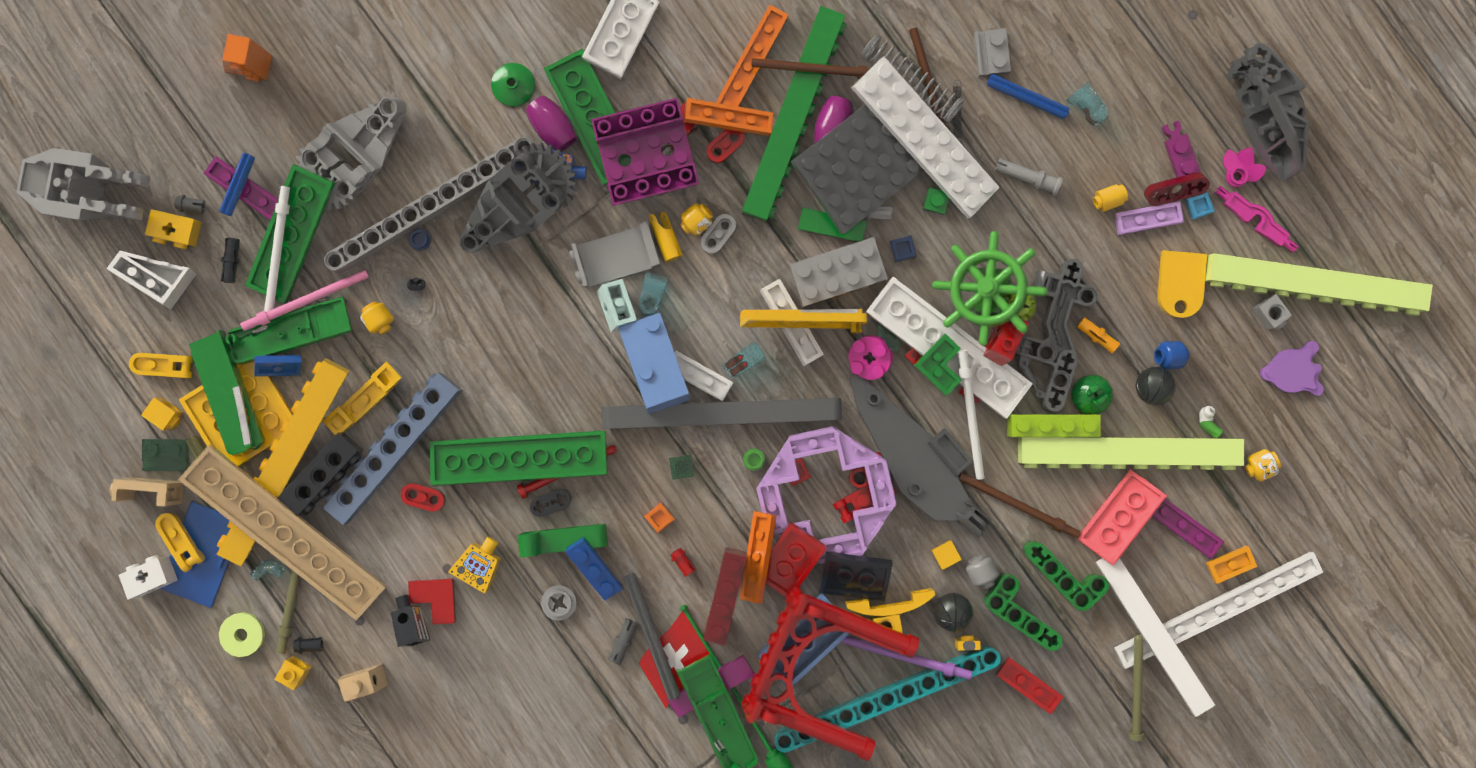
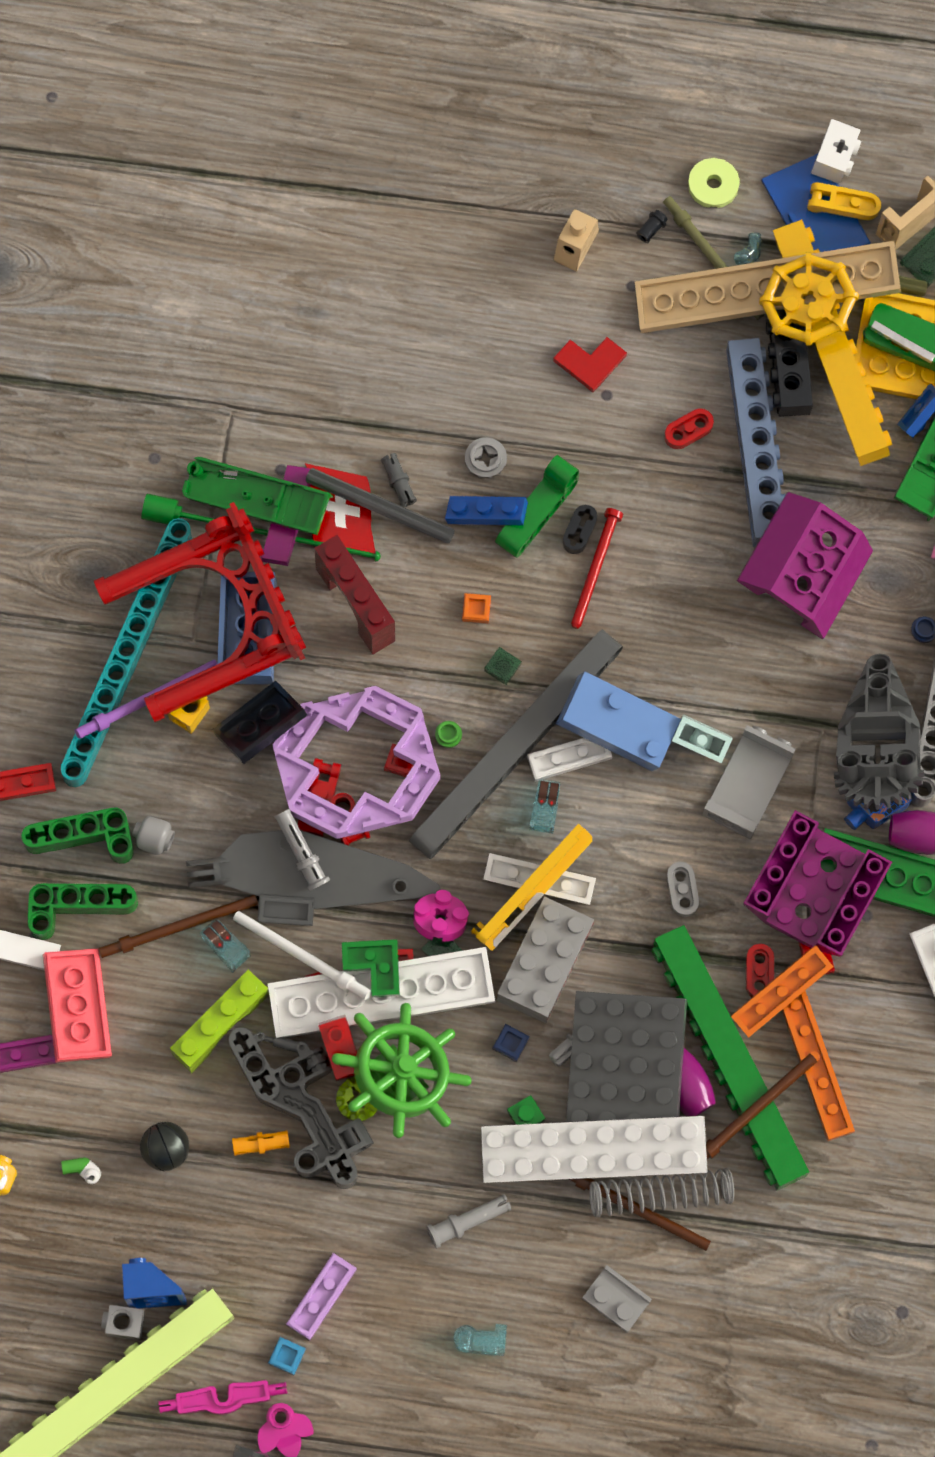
camera: 130 degrees right, 15 degrees down
(263, 509) = (804, 285): none -> yellow plate
(293, 672) = (639, 193): yellow brick -> none
(363, 400) = (823, 454): yellow slope -> none
(377, 318) = (886, 529): yellow head -> none
(412, 631) = (589, 319): black torso -> none
(416, 284) = (886, 591): black rock -> none
(445, 356) = (795, 549): none -> magenta slope
(478, 565) = (584, 420): yellow torso -> none
(518, 458) = (645, 536): green plate -> none
(652, 289) = (687, 785): clear light blue piece -> none
(665, 237) = (721, 839): yellow piece -> none
(682, 561) = (418, 591): red pin -> none
(696, 219) = (714, 881): yellow head -> none
(758, 557) = (360, 653): orange plate -> none
(793, 559) = (329, 680): red plate -> none
(820, 223) = (613, 982): green tile -> none
(917, 465) = (306, 860): none -> light grey pin
(918, 598) = (224, 705): yellow slope -> none
(946, 554) = (198, 821): yellow tile -> none
(953, 612) = (144, 775): pearl dark grey piece -> none
(957, 120) = (574, 1193): dark grey piece -> none
(967, 642) = (104, 764): yellow plate -> none
(1005, 467) = (225, 945): none -> clear light blue leg
(1028, 96) = (543, 1292): blue axle -> none
(1084, 397) = (211, 1098): green hair -> none
(1110, 197) = (375, 1275): yellow brick -> none
(1130, 451) = (123, 1073): yellowish green brick -> none
(1171, 355) = (176, 1191): blue head -> none
(1180, 151) = (351, 1385): magenta plate -> none
(1181, 280) = (234, 1270): yellow tile -> none
(1185, 192) = (339, 1331): dark red beam -> none
(1247, 312) = (149, 1287): none -> blue slope
(1294, 371) = (49, 1295): medium lavender tile -> none

